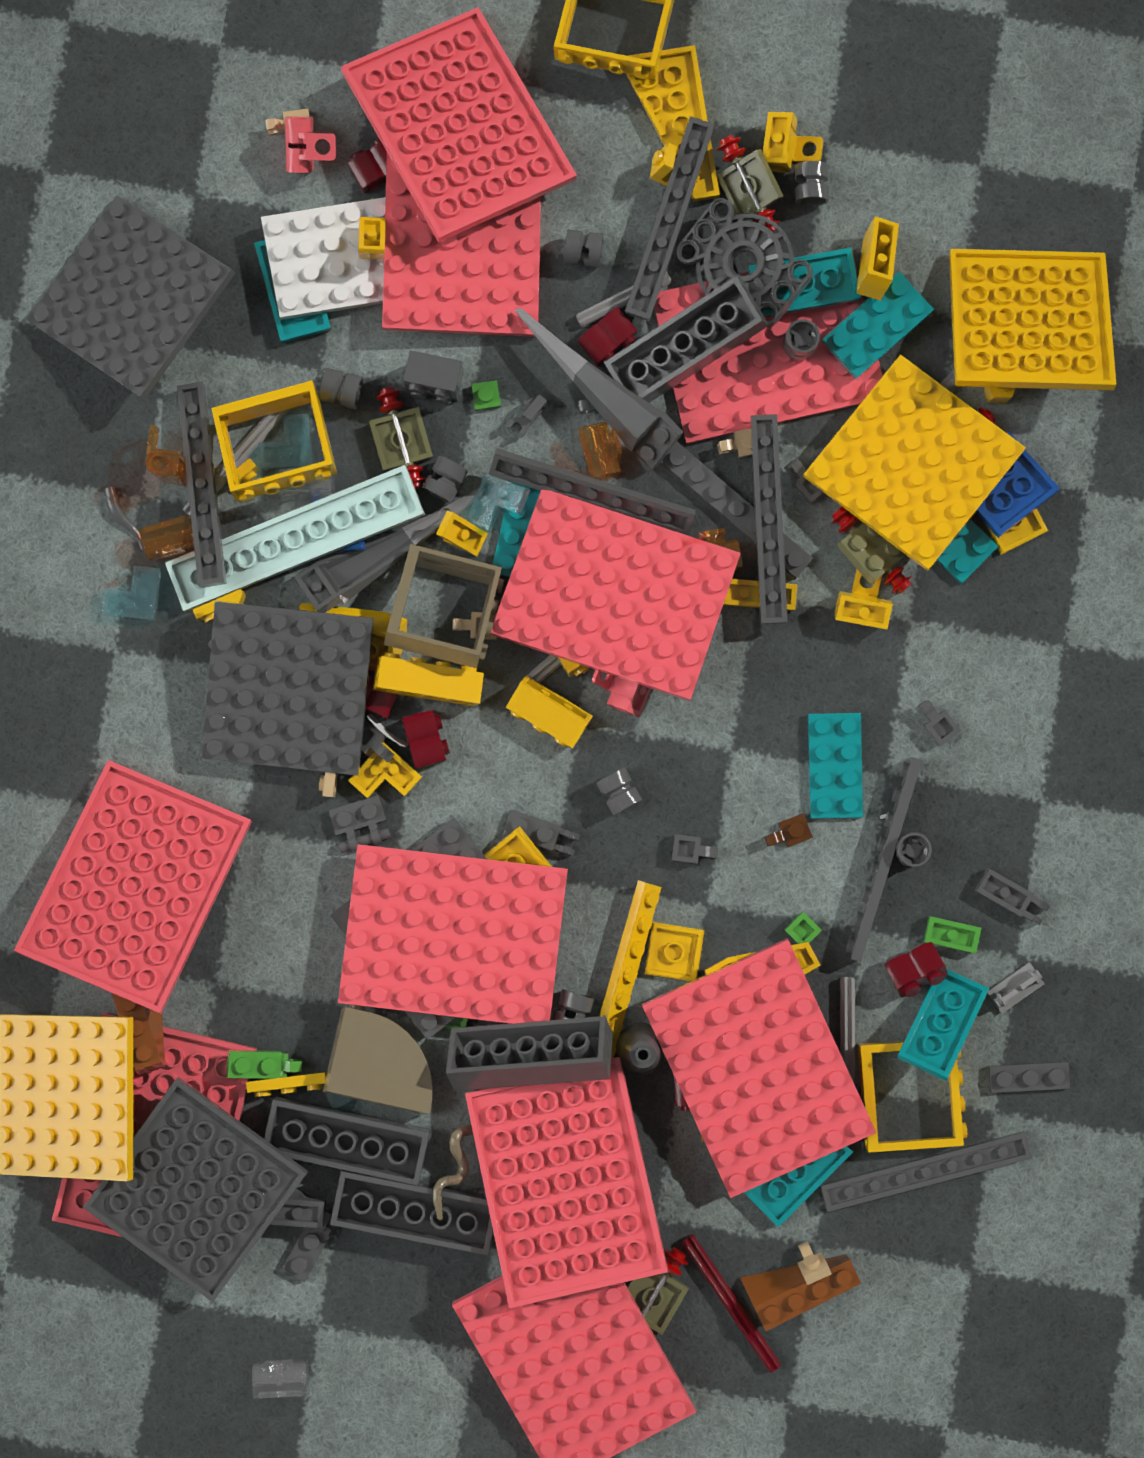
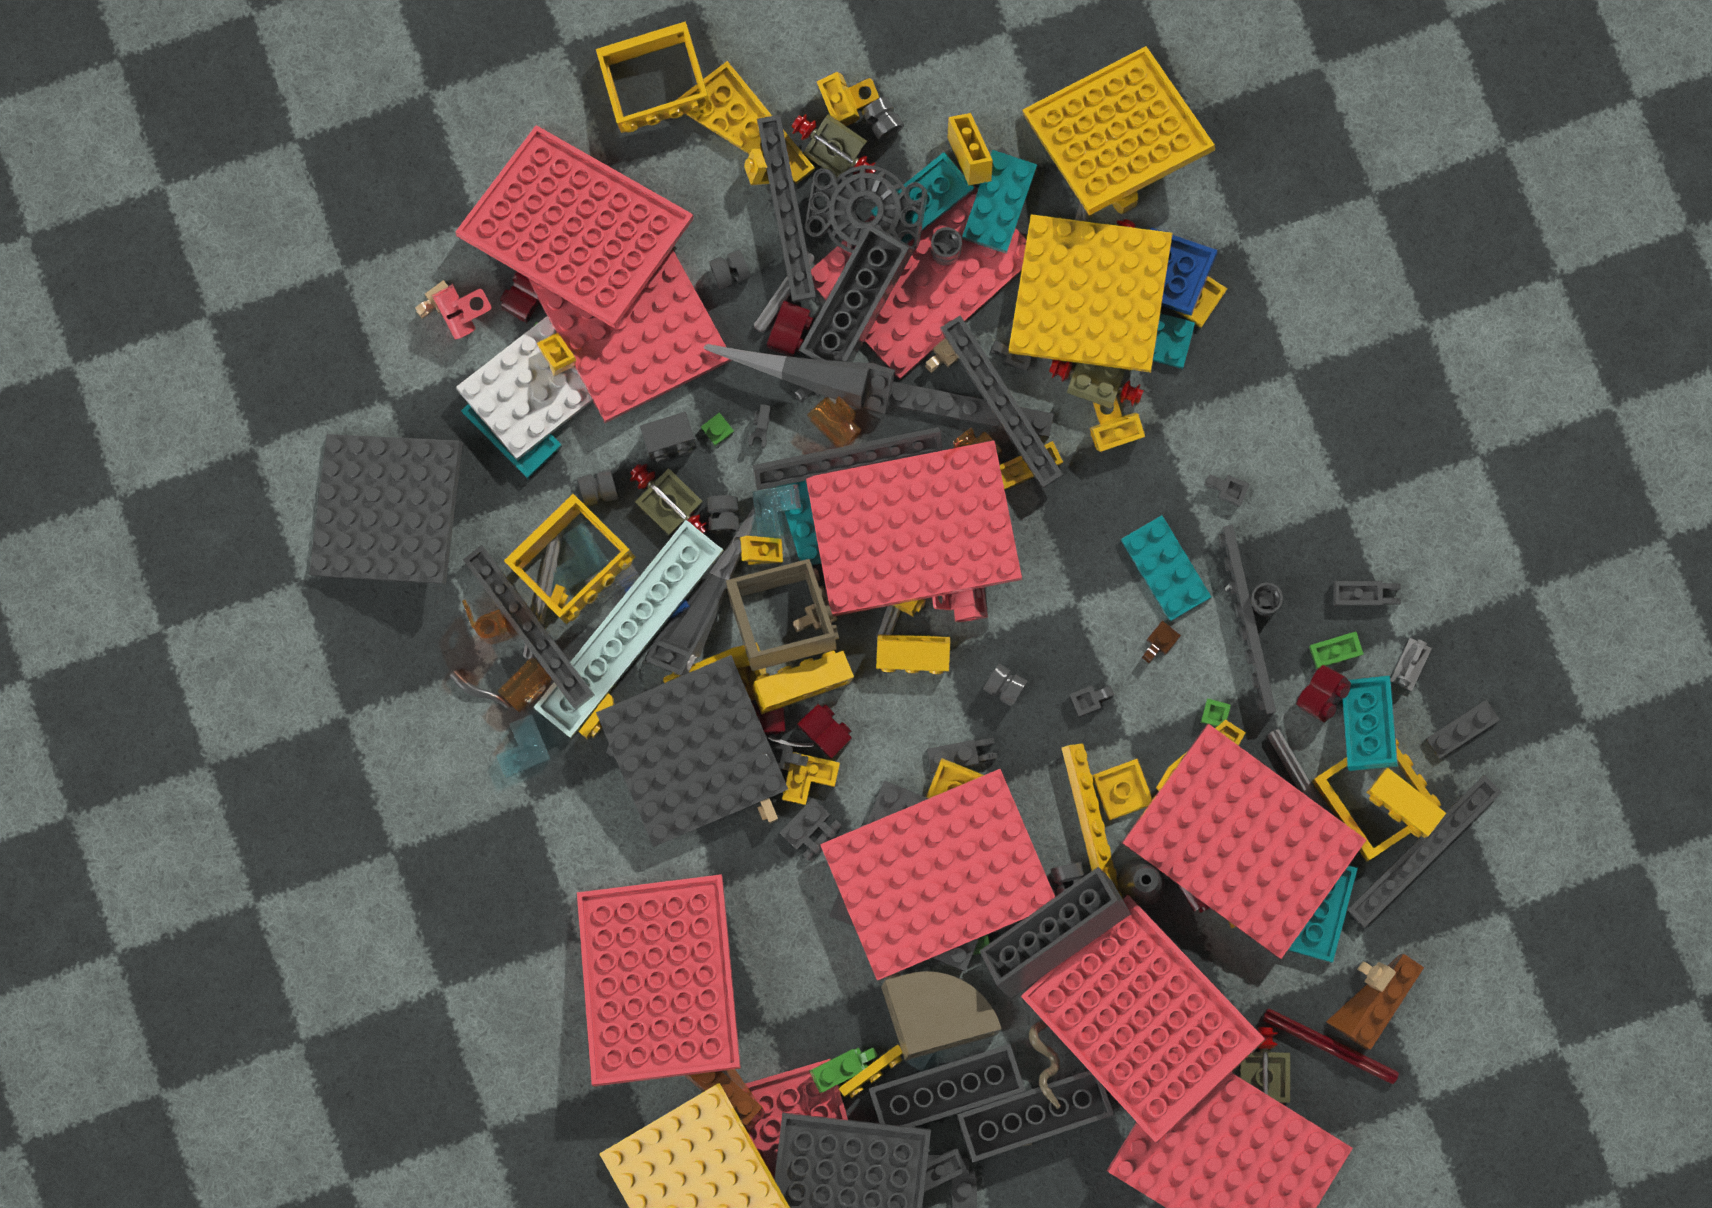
camera: 30 degrees left, 5 degrees down
(933, 1119) = (1405, 803): none -> yellow brick

